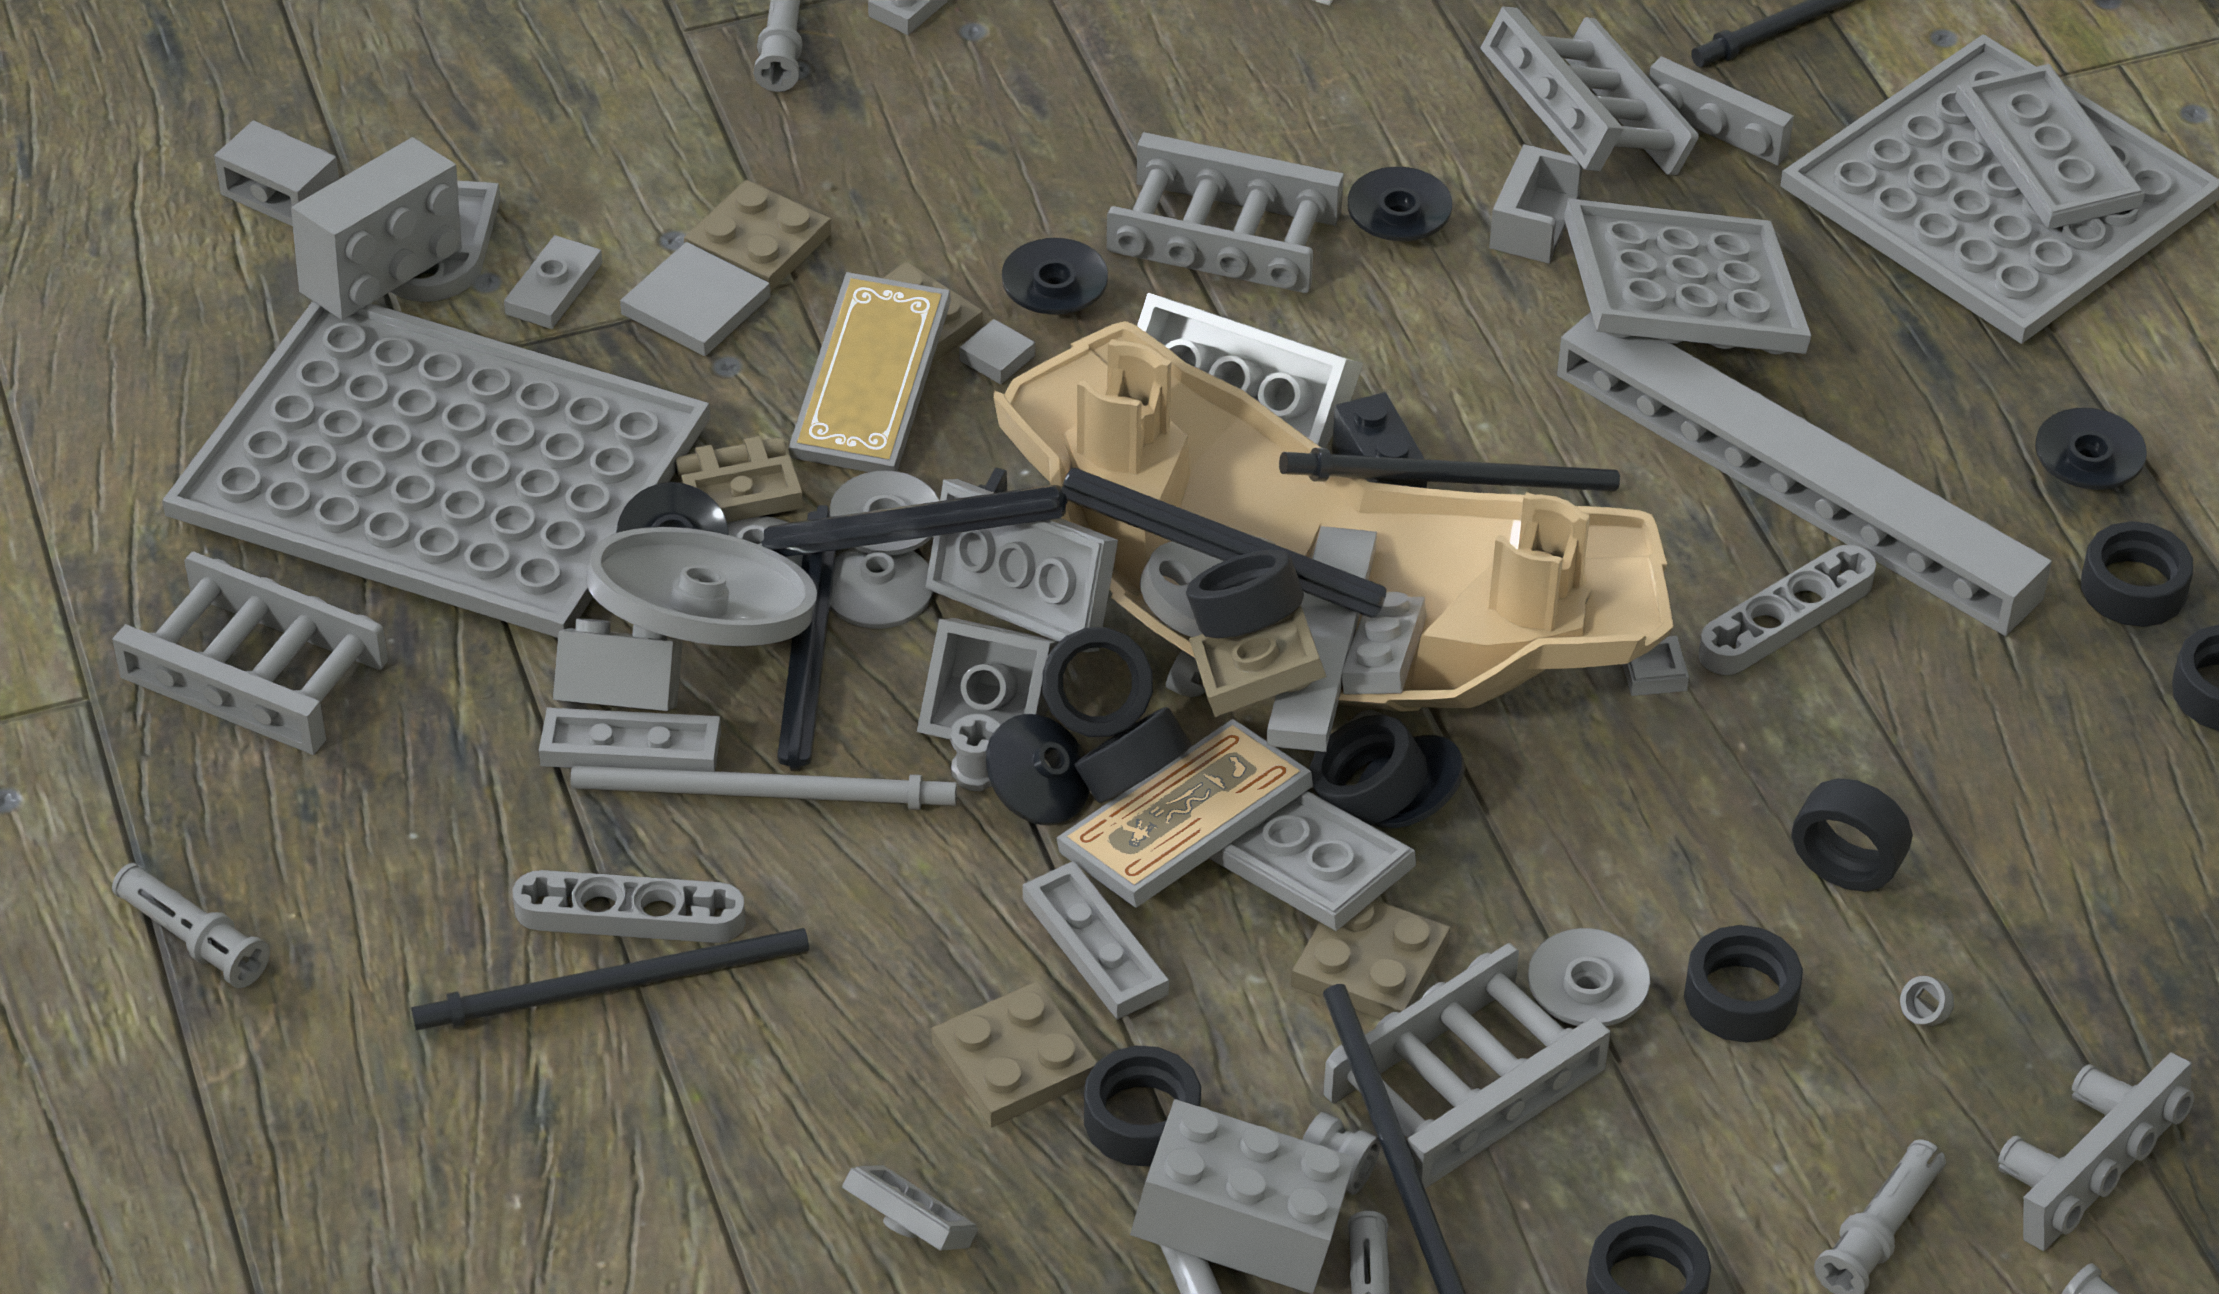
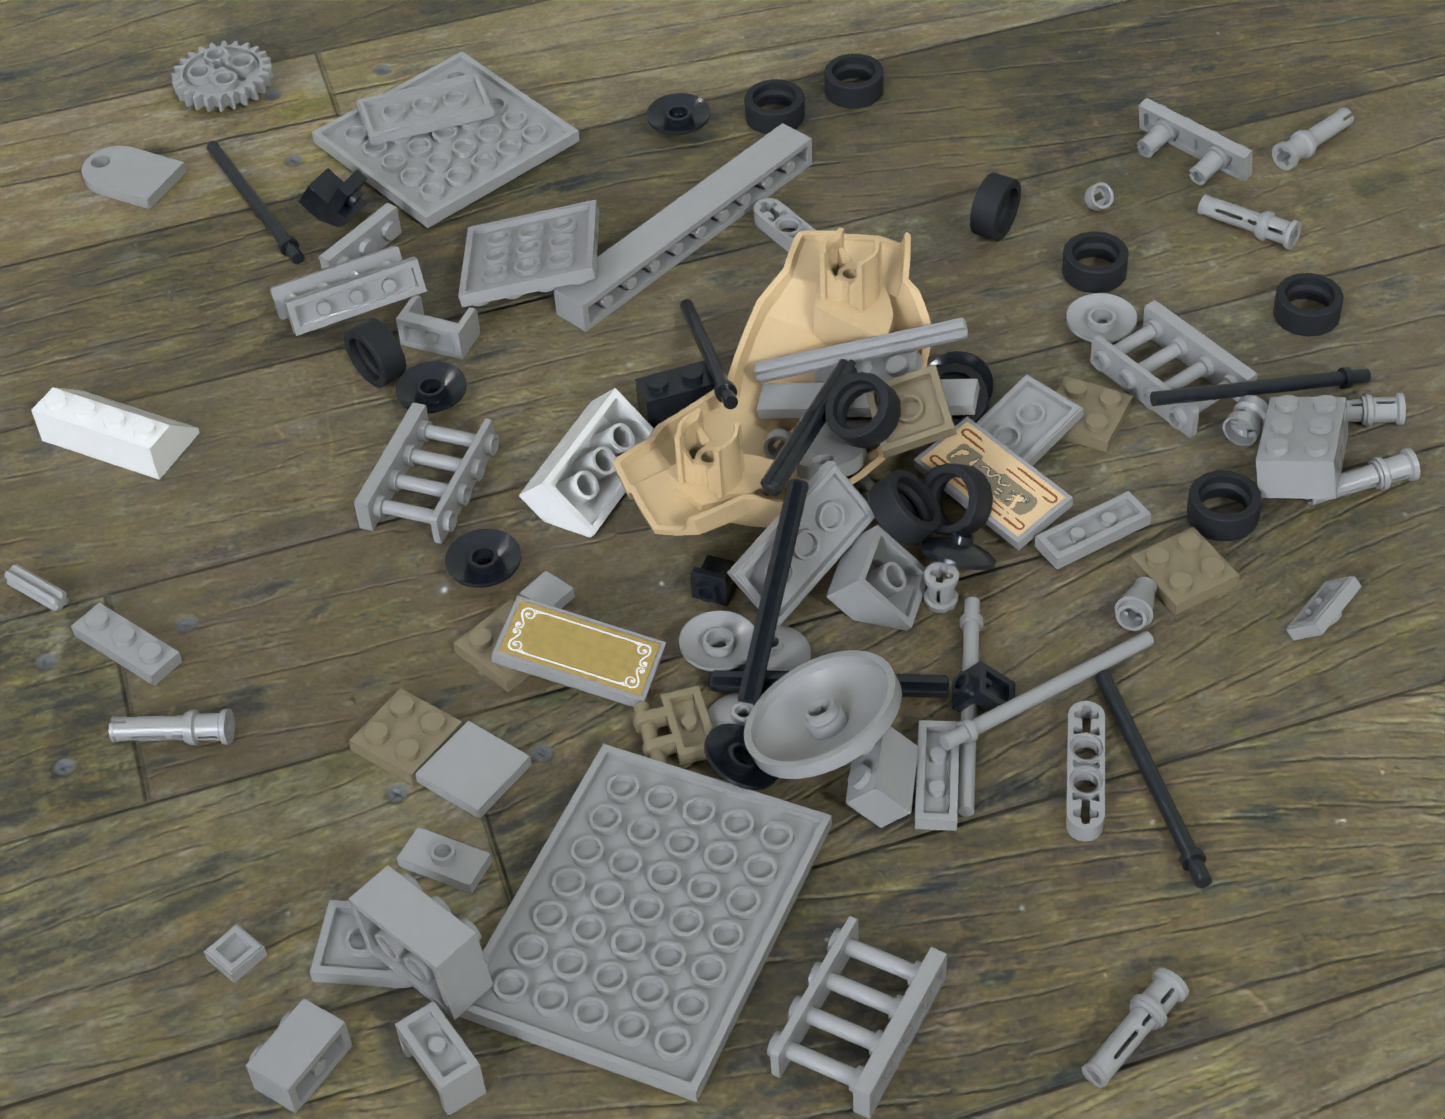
camera: 85 degrees left, 0 degrees up
(246, 285) = (442, 1057): none -> light grey panel
(441, 121) = (235, 953): none -> light grey tile
(682, 757) = (968, 730): none -> light grey bar
(769, 794) = (981, 686): none -> black bracket
(936, 981) = (1136, 606): none -> light grey cone
(1405, 613) = (861, 350): none -> light grey axle
(1452, 130) = (375, 352): none -> black tyre
(1820, 69) = (334, 200): none -> black brick

